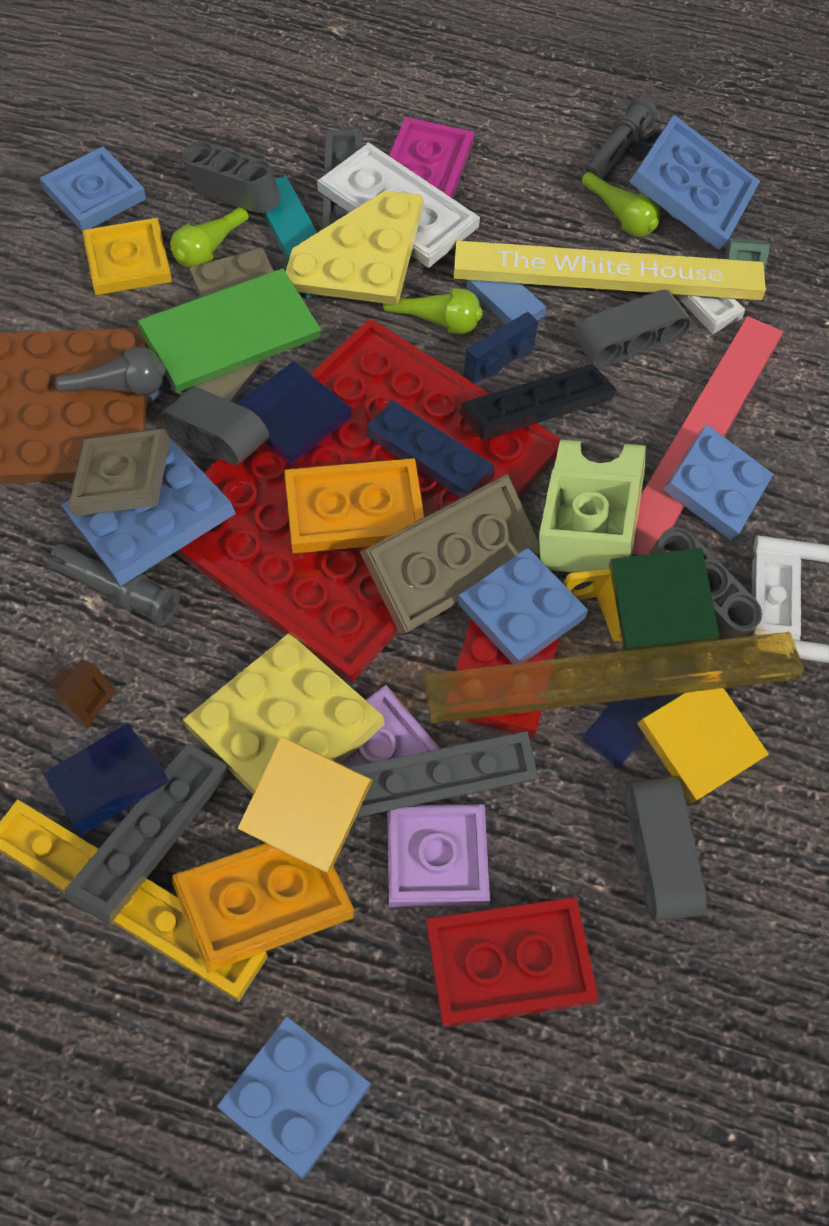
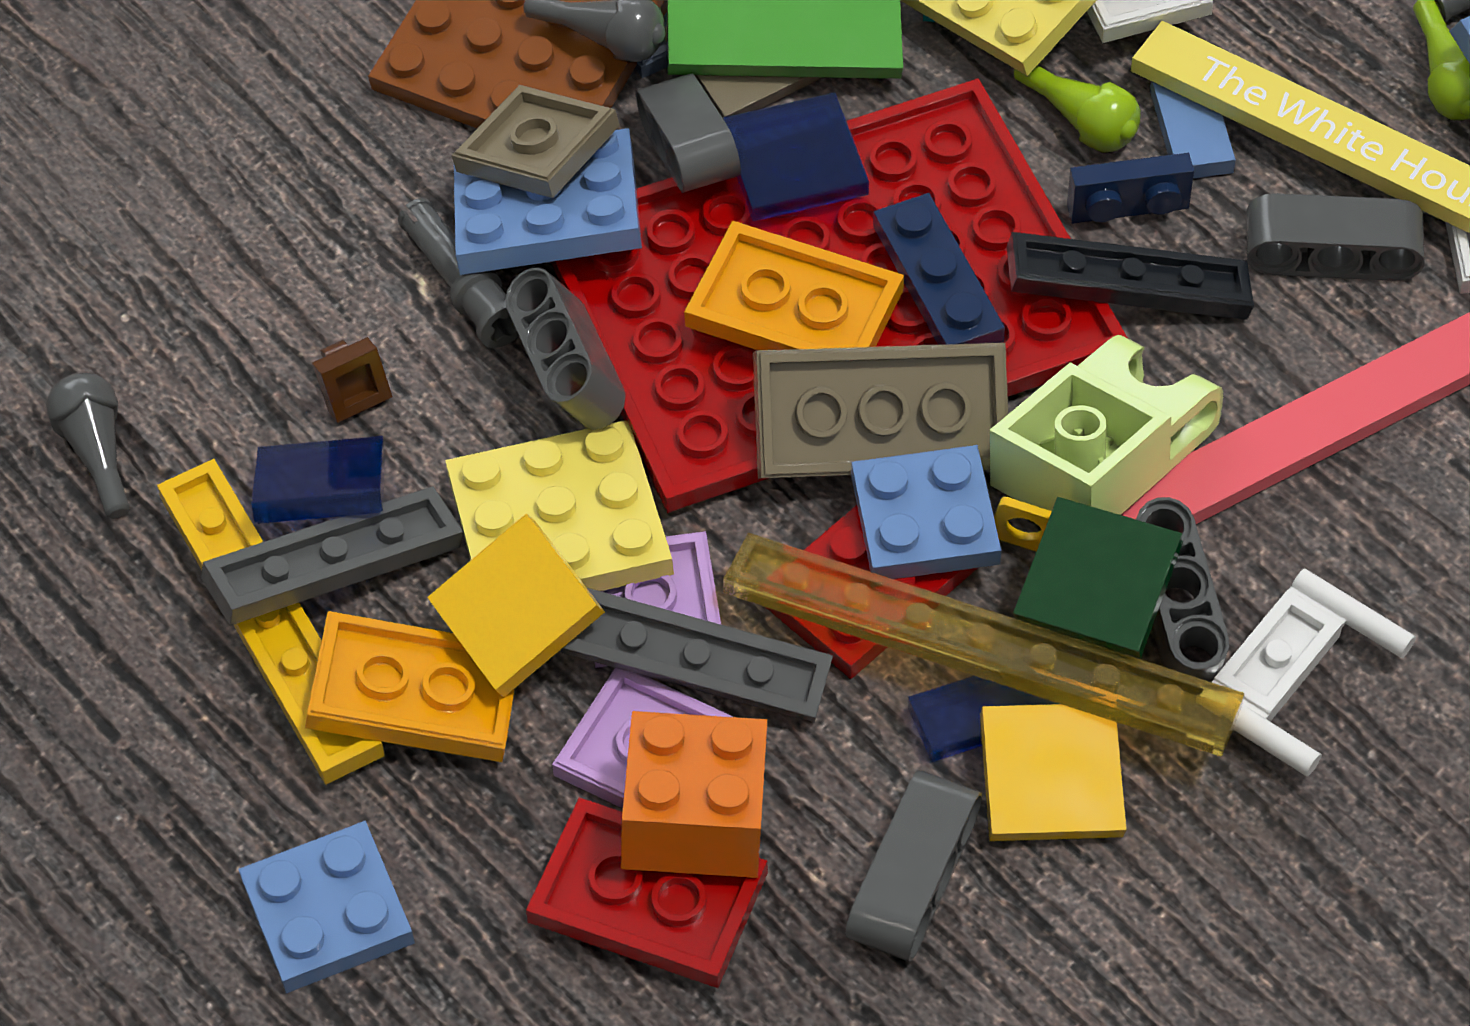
camera: 35 degrees right, 5 degrees down
(243, 608) = (565, 349): none -> dark grey beam
(512, 879) = (693, 794): none -> orange brick
(718, 482) = (1306, 481): medium blue plate -> none

